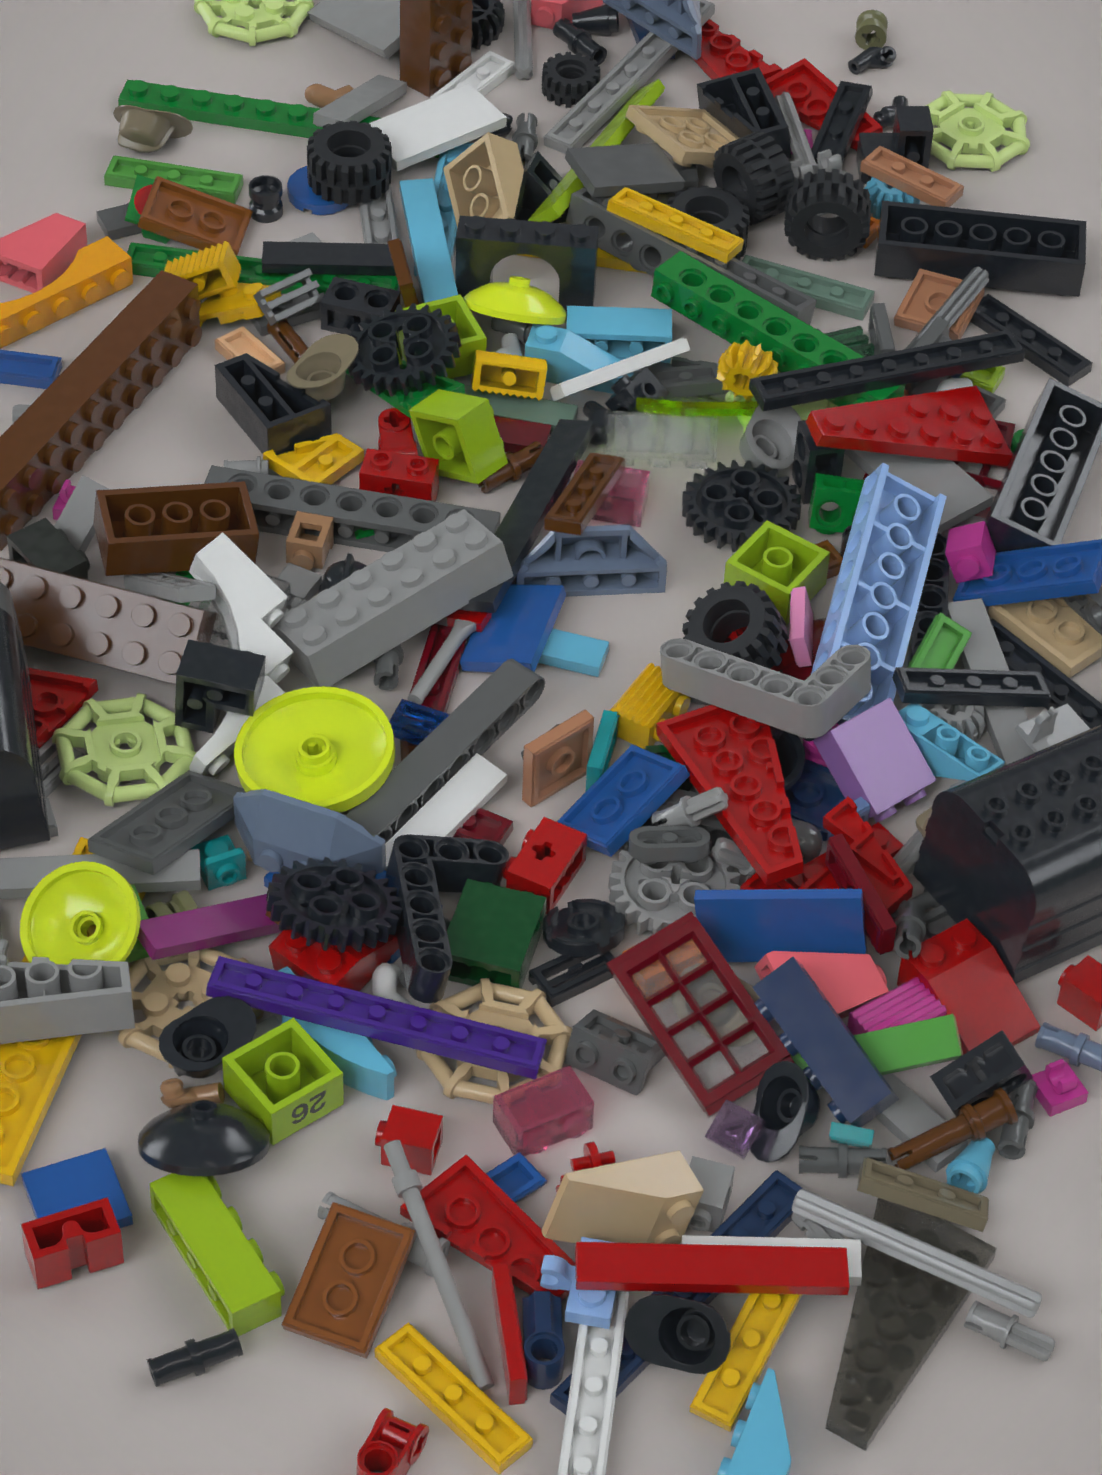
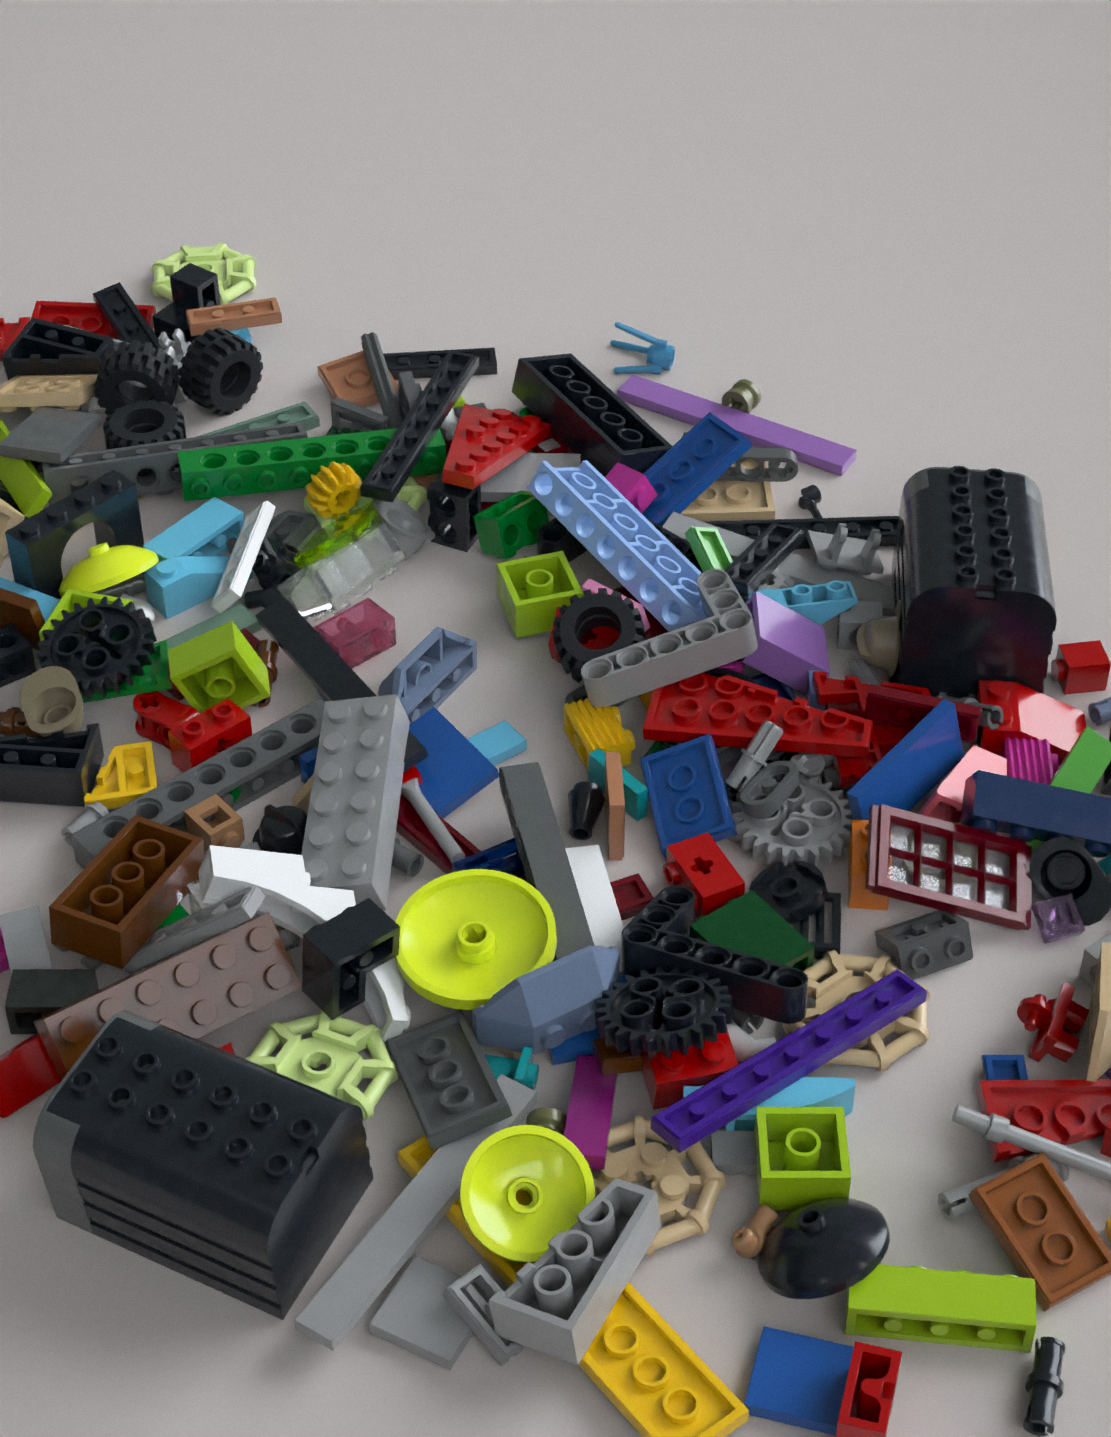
camera: 50 degrees left, 5 degrees down
(206, 1035) = (724, 1176): black piece -> none
(419, 1134) = (921, 1113): red brick -> none
(509, 374) = (181, 613): yellow brick -> none
(543, 1112) = (958, 1017): clear pink brick -> none
(584, 494) = (372, 635): reddish brown tile -> none
(675, 225) = (143, 440): yellow tile -> none
(737, 501) = (445, 578): black gear -> none
(866, 23) = (47, 260): olive wheel -> none
(872, 58) = (73, 275): black arm -> none
(886, 115) = (139, 294): black arm -> none
(1014, 248) = (334, 327): black brick -> none

